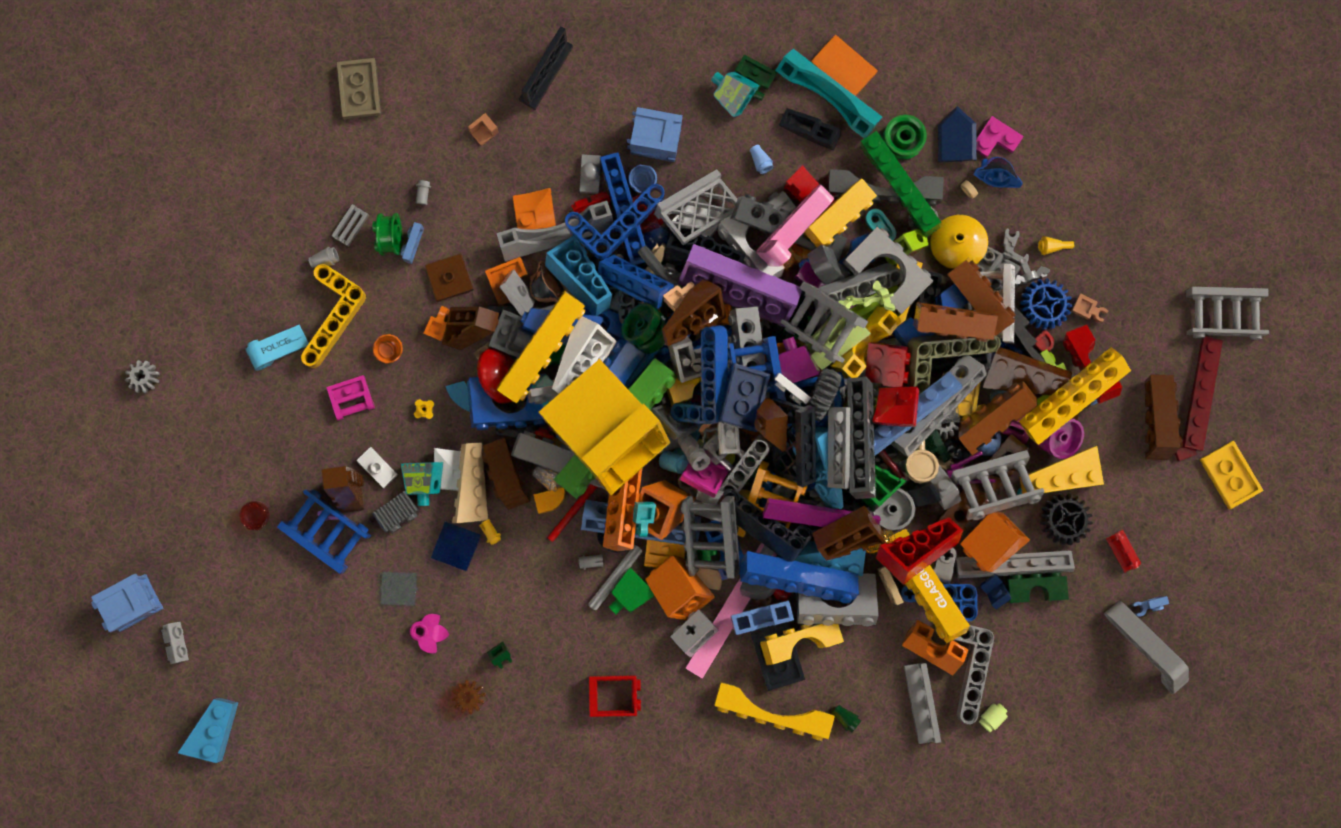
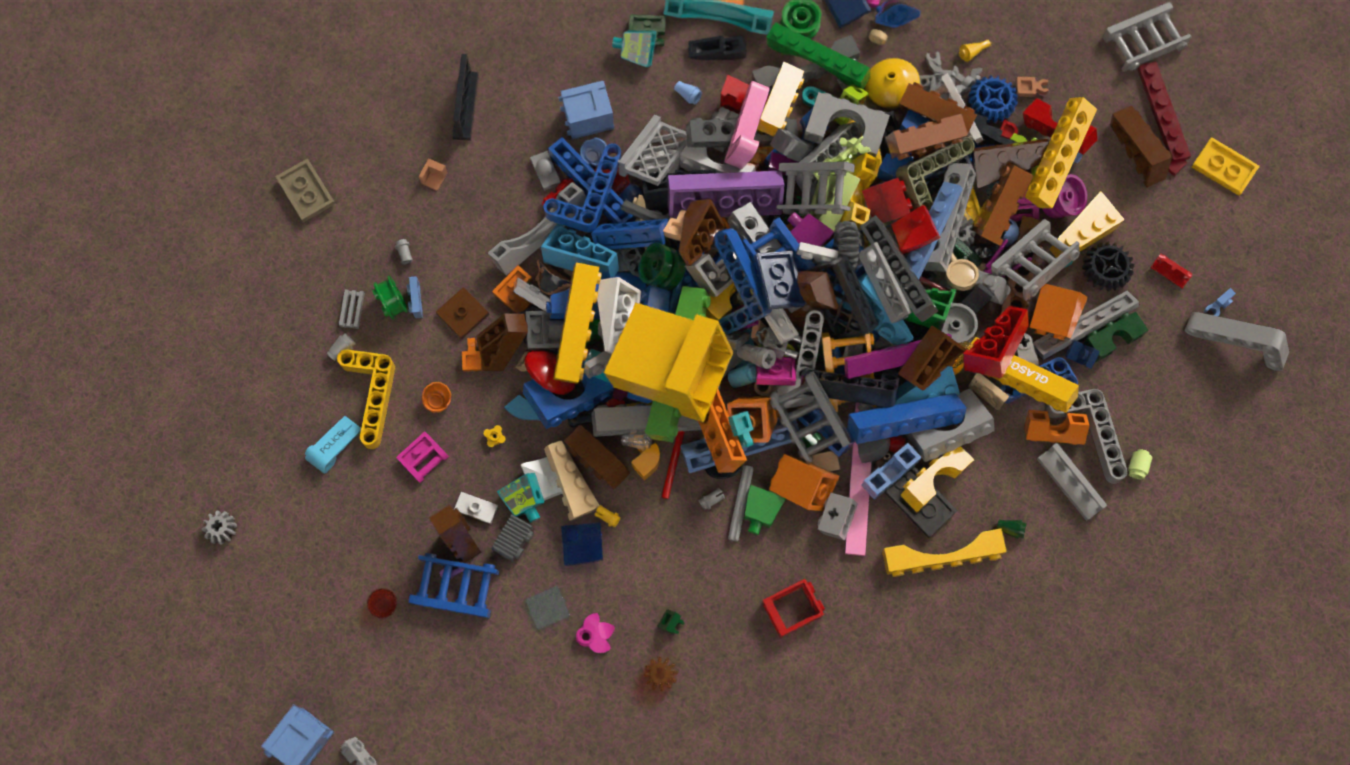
camera: 15 degrees left, 10 degrees down
(534, 210) = (510, 221): orange plate -> none
(658, 551) = (768, 460): light orange plate -> none

